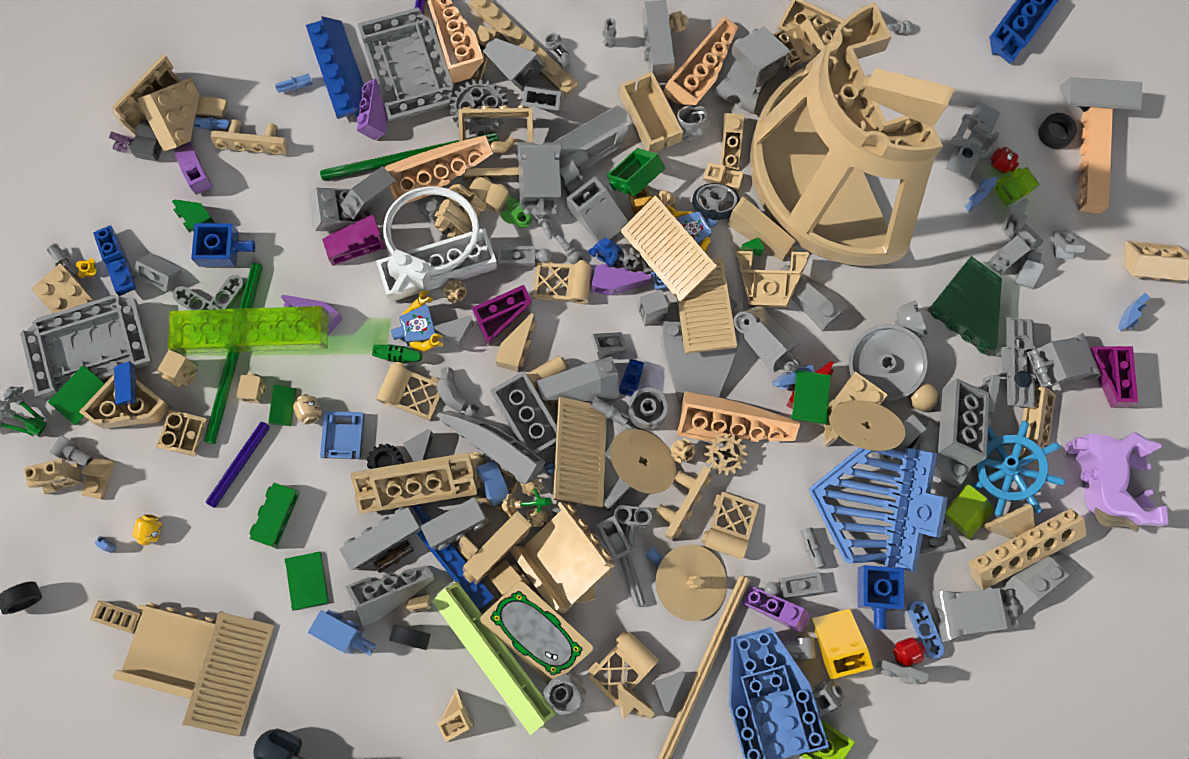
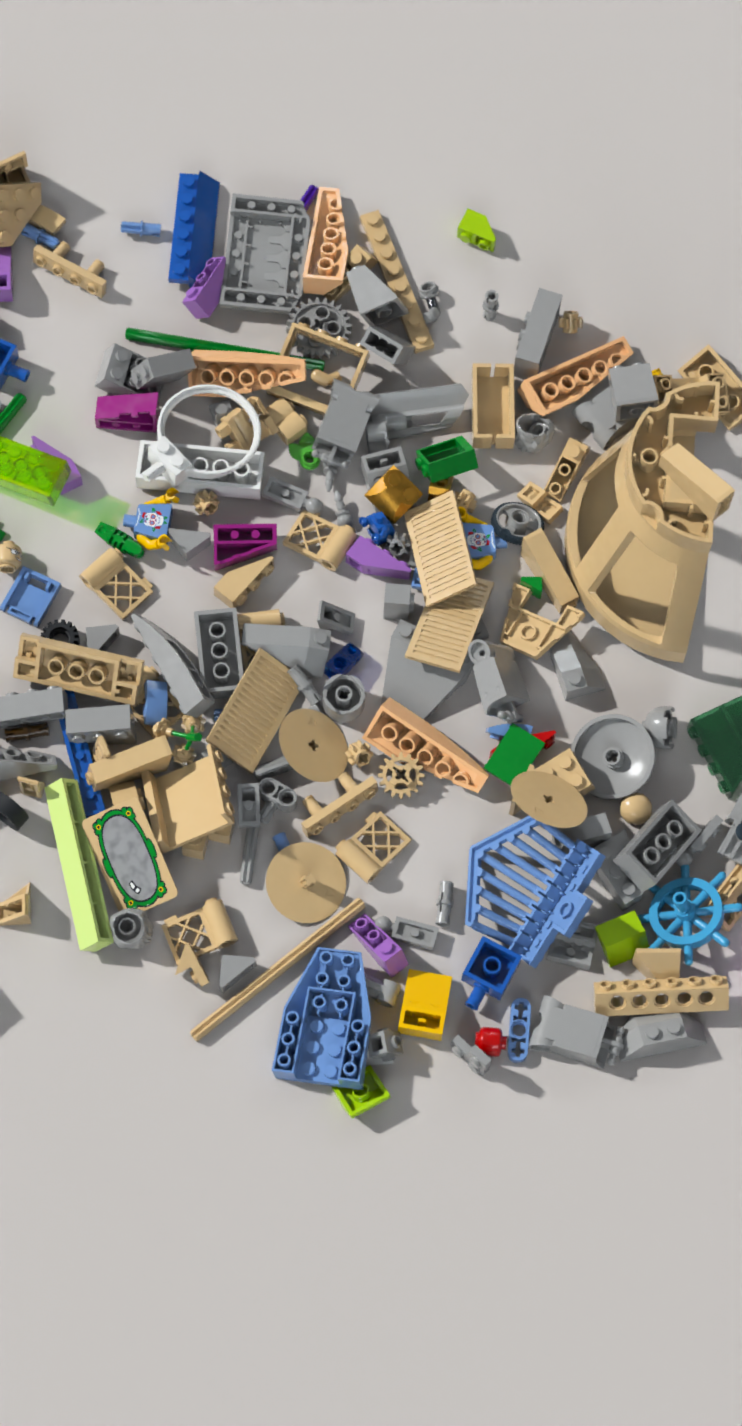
camera: 25 degrees right, 5 degrees down
(450, 396) = (153, 603): light grey arm -> none
(607, 218) = (393, 494): none -> pearl gold slope

